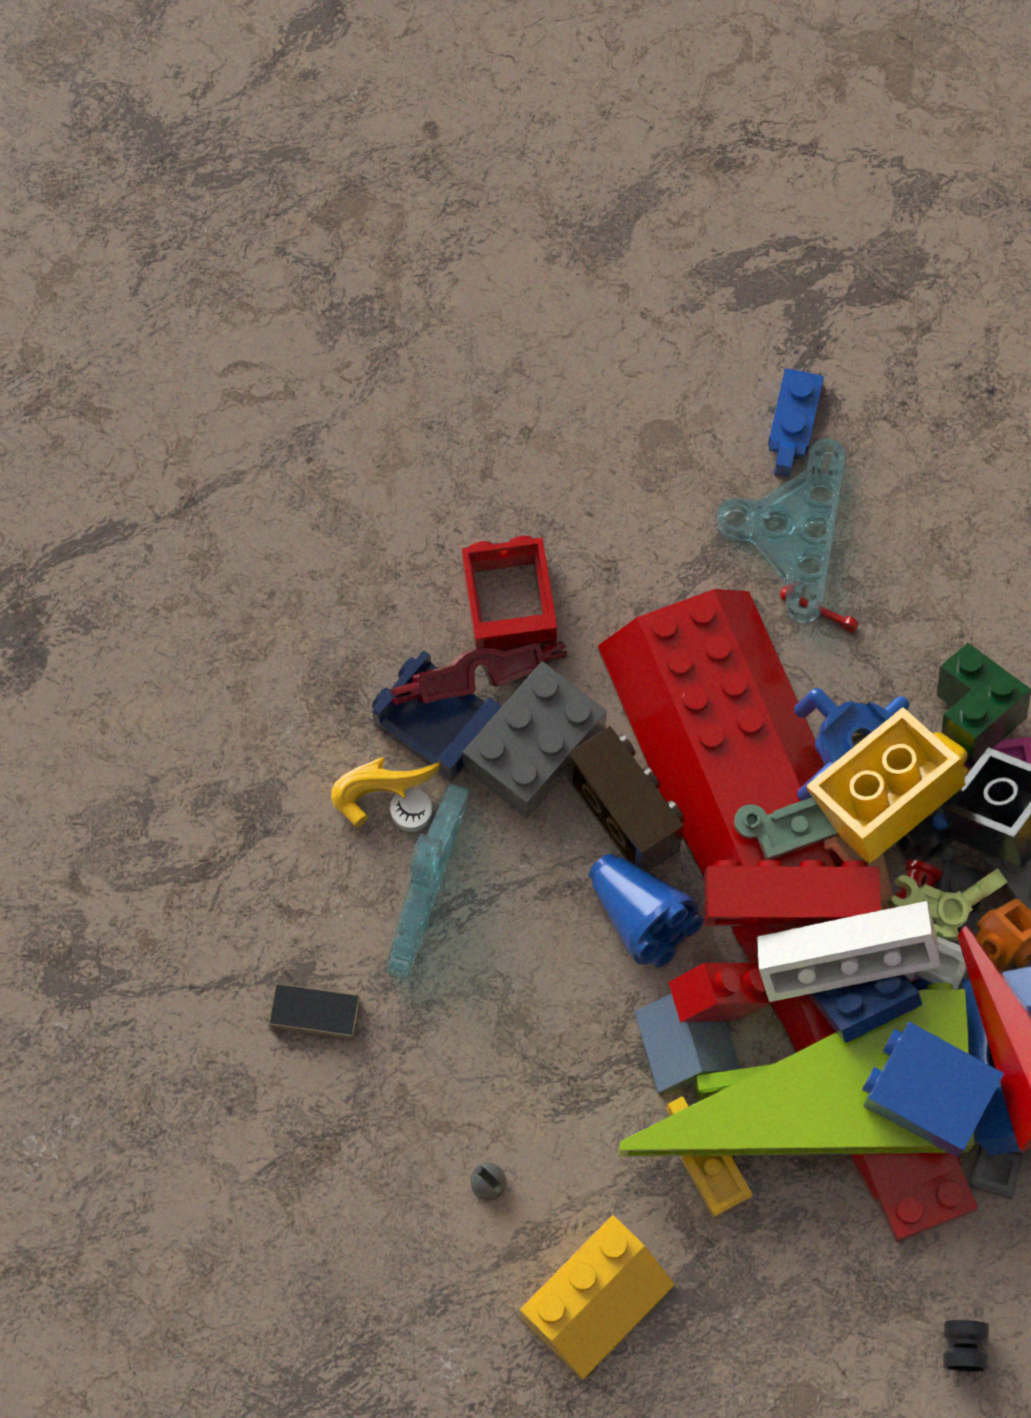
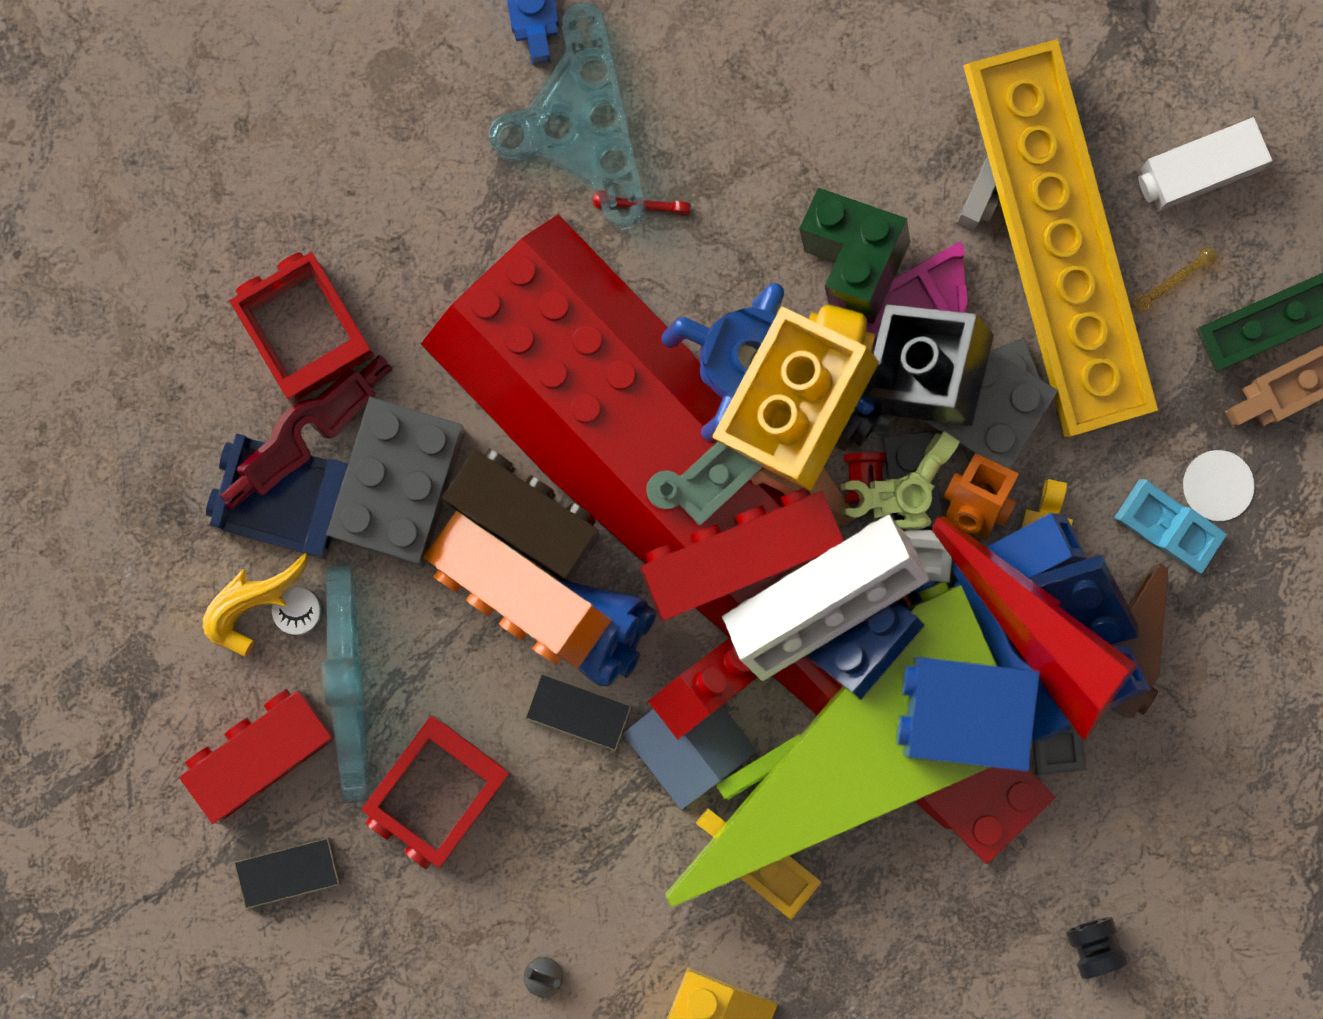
camera: 25 degrees left, 15 degrees up
(331, 906) = (256, 755): none -> red brick
(514, 993) = (475, 759): none -> red window
(597, 852) = (516, 589): none -> brick
(605, 979) = (578, 712): none -> black tile

